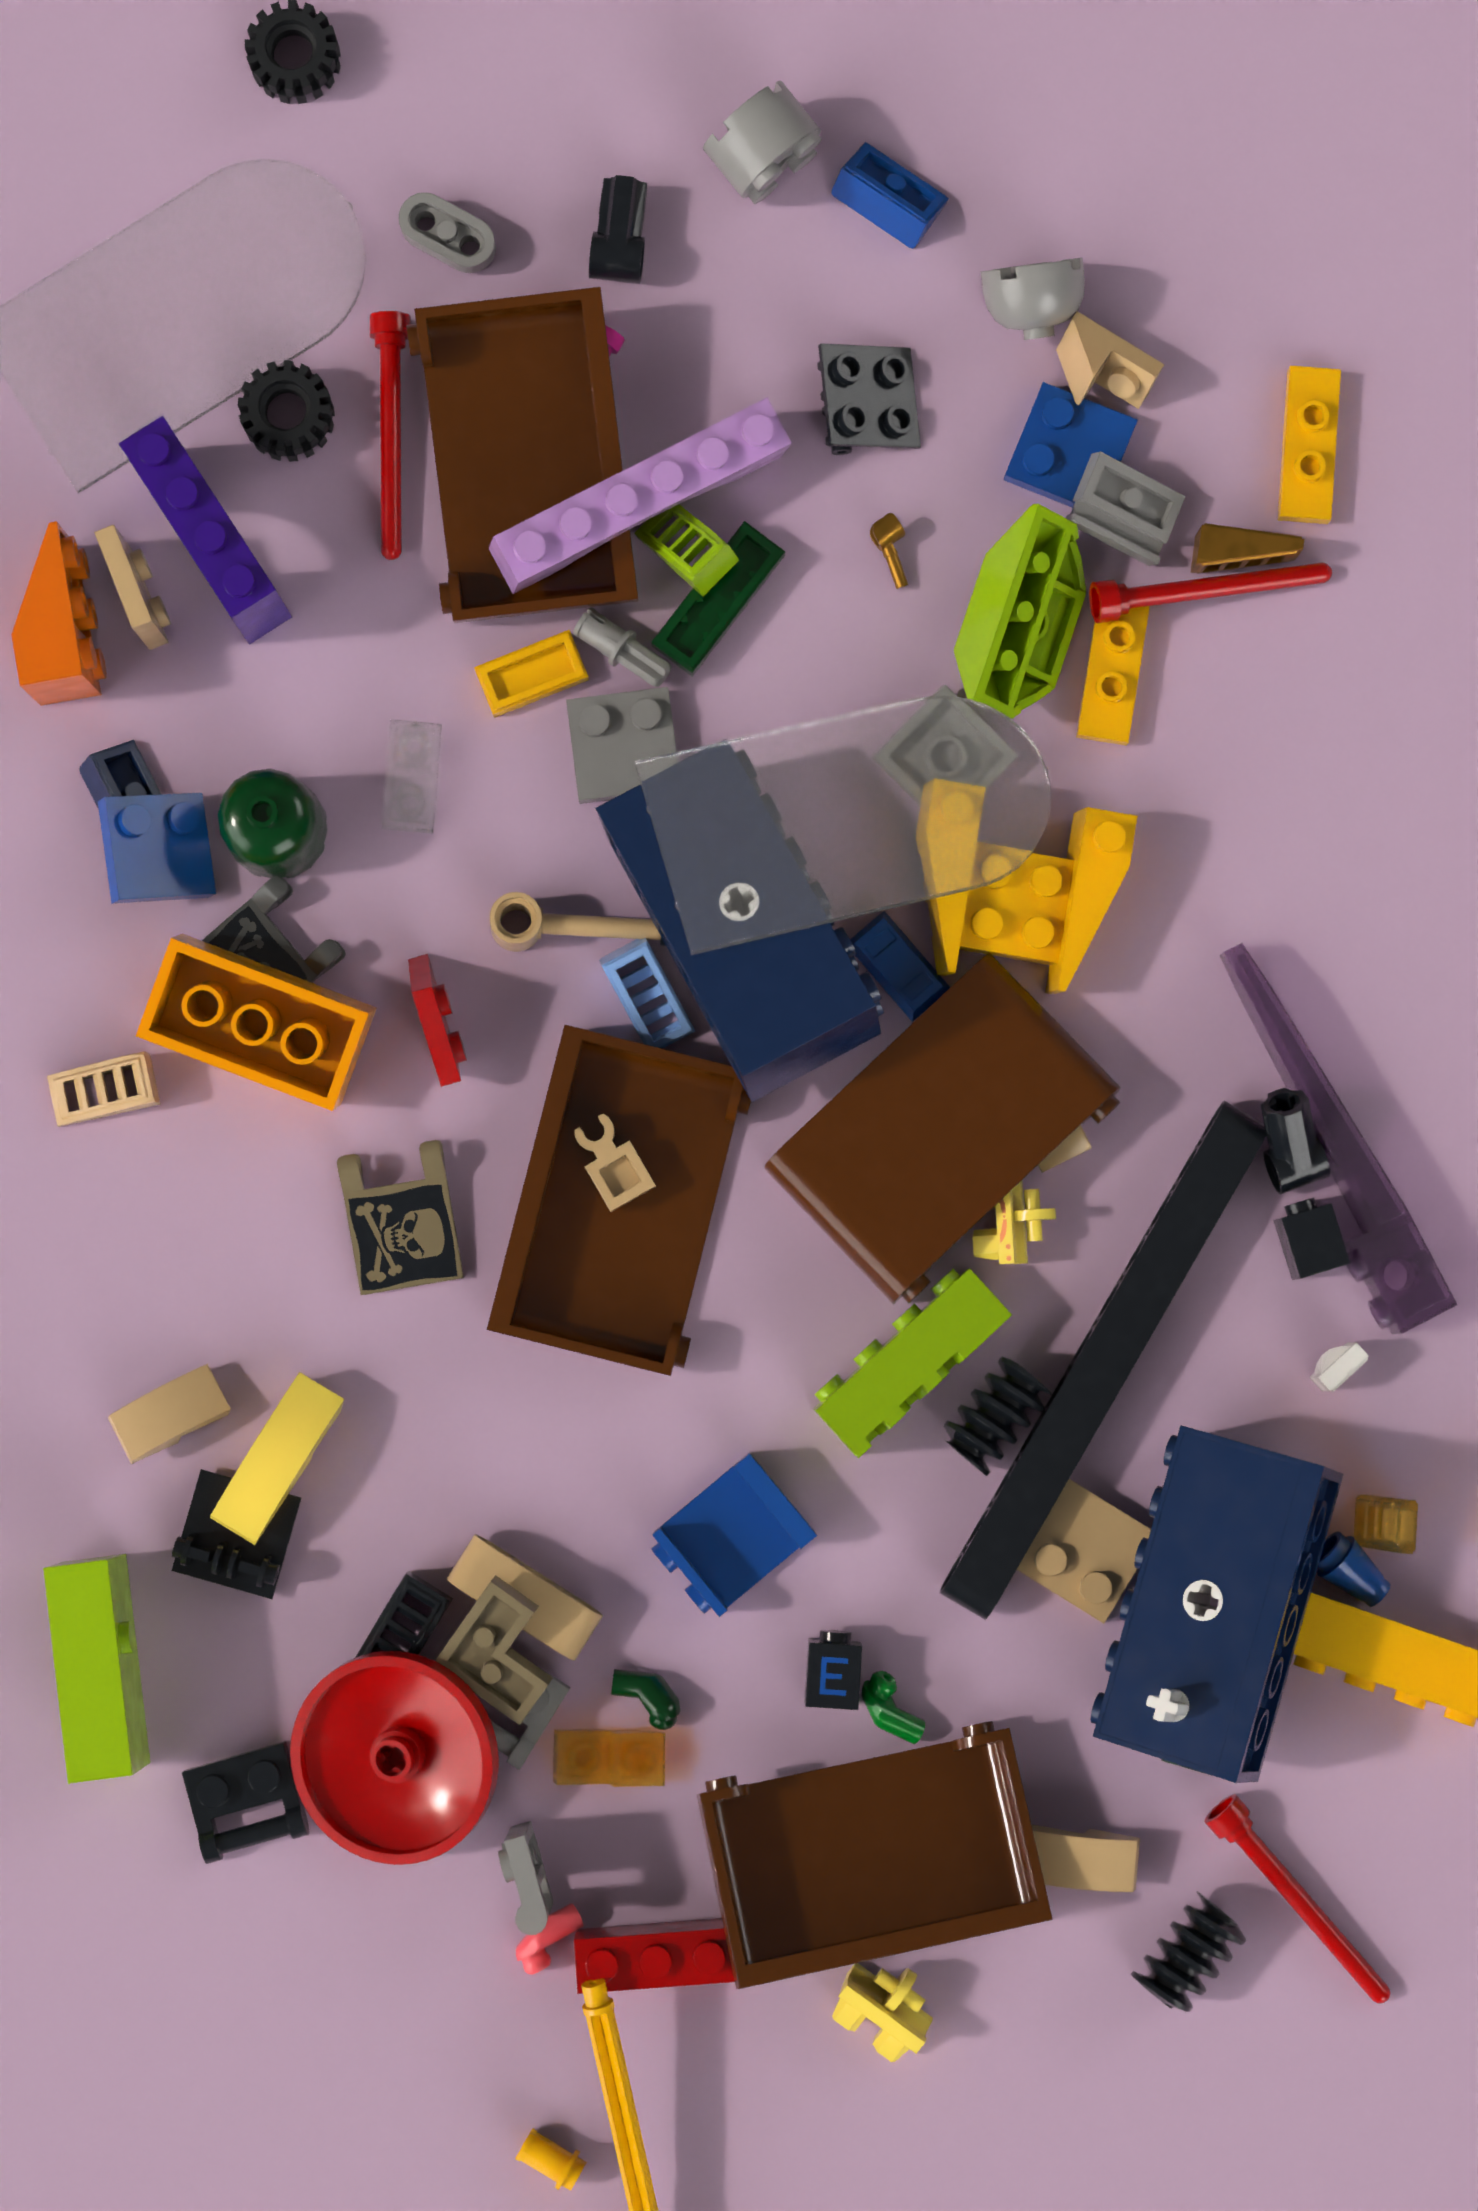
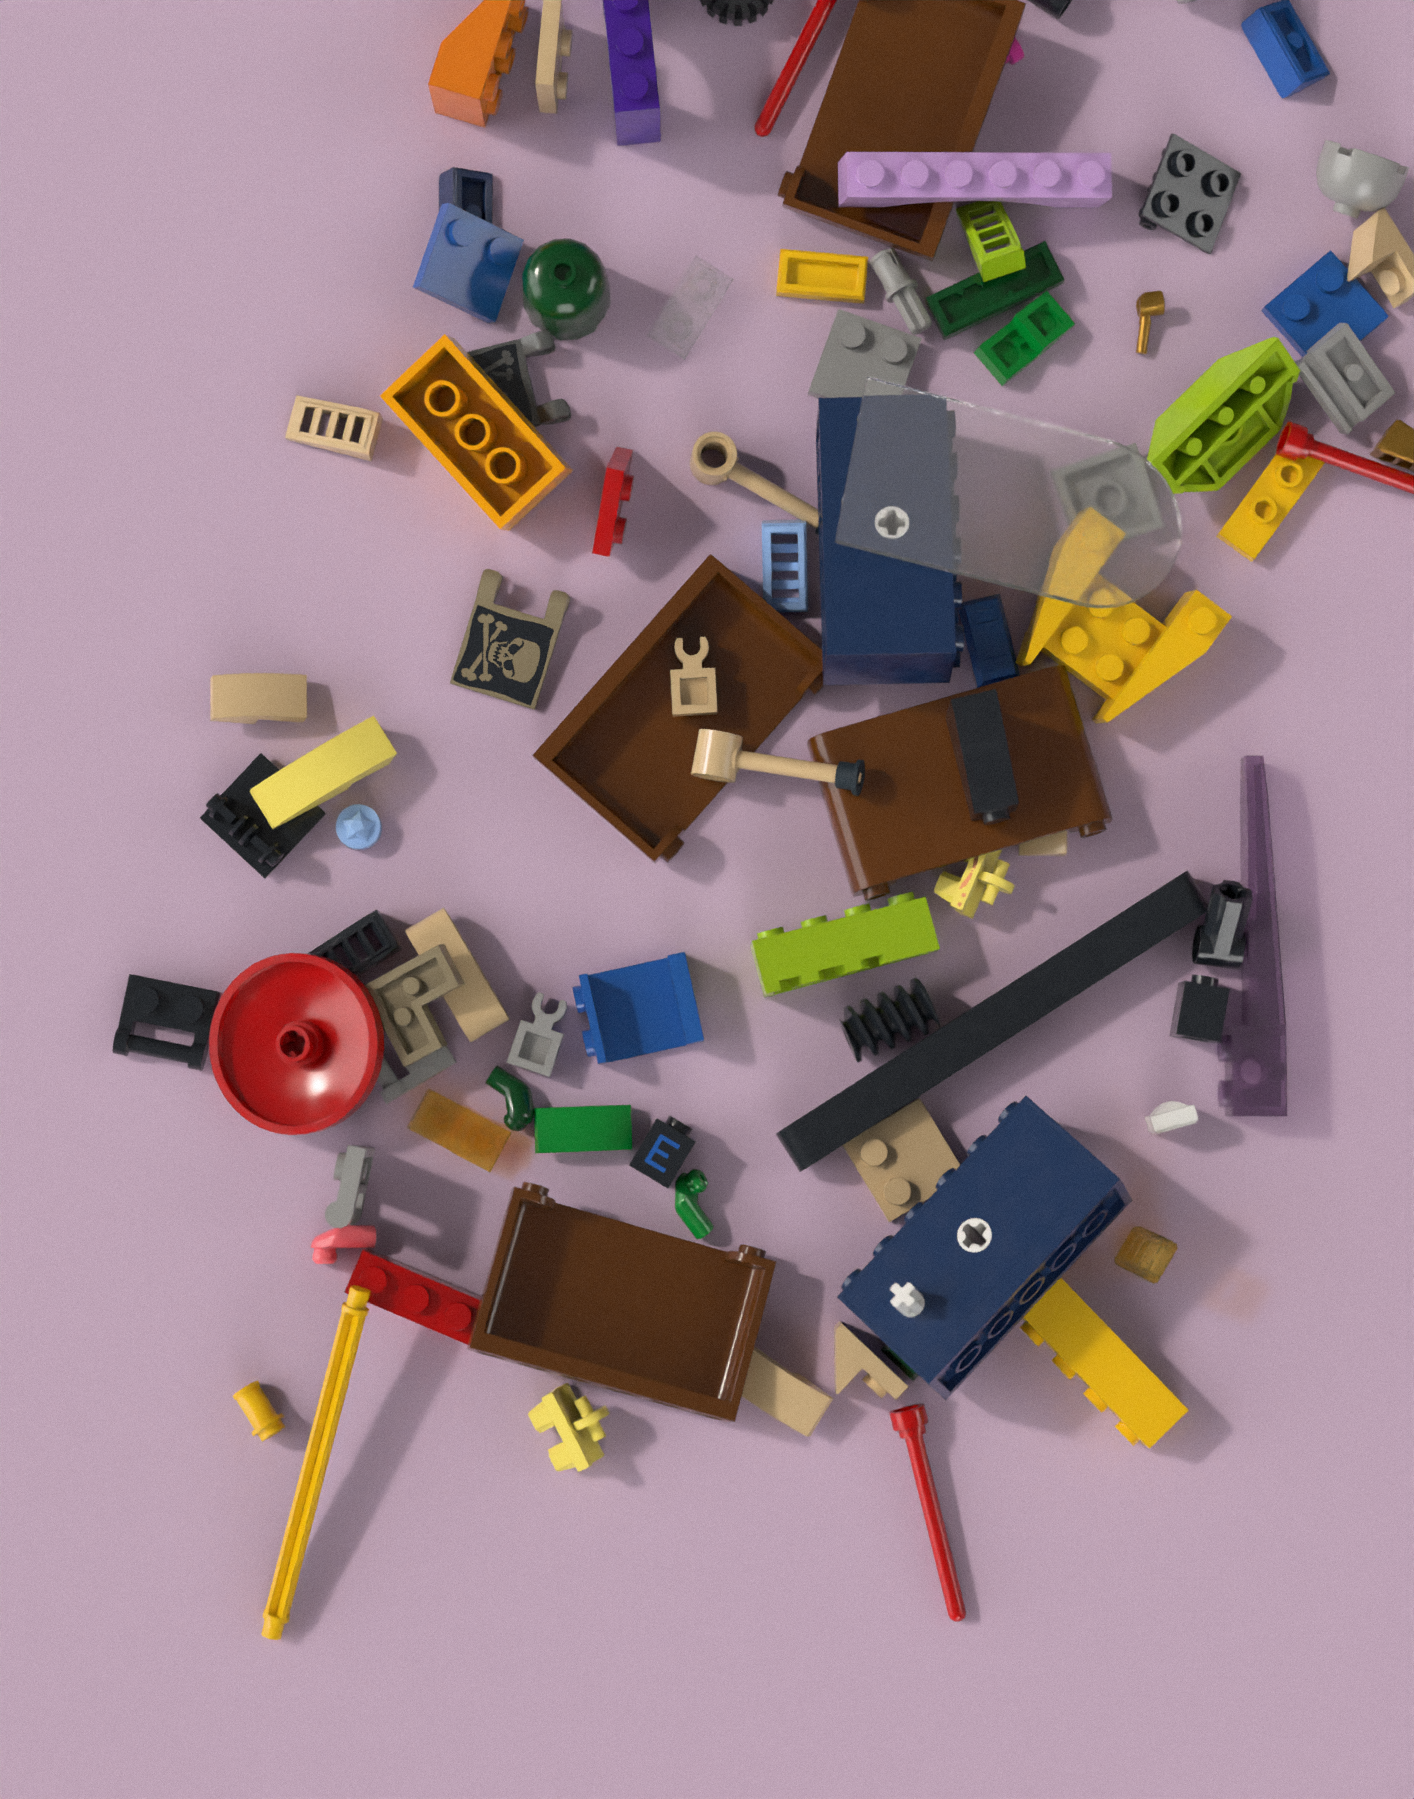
camera: 25 degrees right, 0 degrees up
(97, 1668) = (106, 858): lime brick -> none
(343, 1494) = (358, 827): none -> light blue tile
(645, 1625) = (536, 1043): none -> light grey plate
(684, 1229) = (721, 756): none -> tan piece
(737, 1690) = (583, 1129): none -> green slope
(774, 632) = (1024, 338): none -> green slope
(957, 1096) = (982, 756): none -> black slope
(1139, 1782) = (852, 1356): none -> tan slope
(1190, 1955) = (826, 1506): black piece -> none
(1351, 1569) = (1100, 1277): blue cone -> none

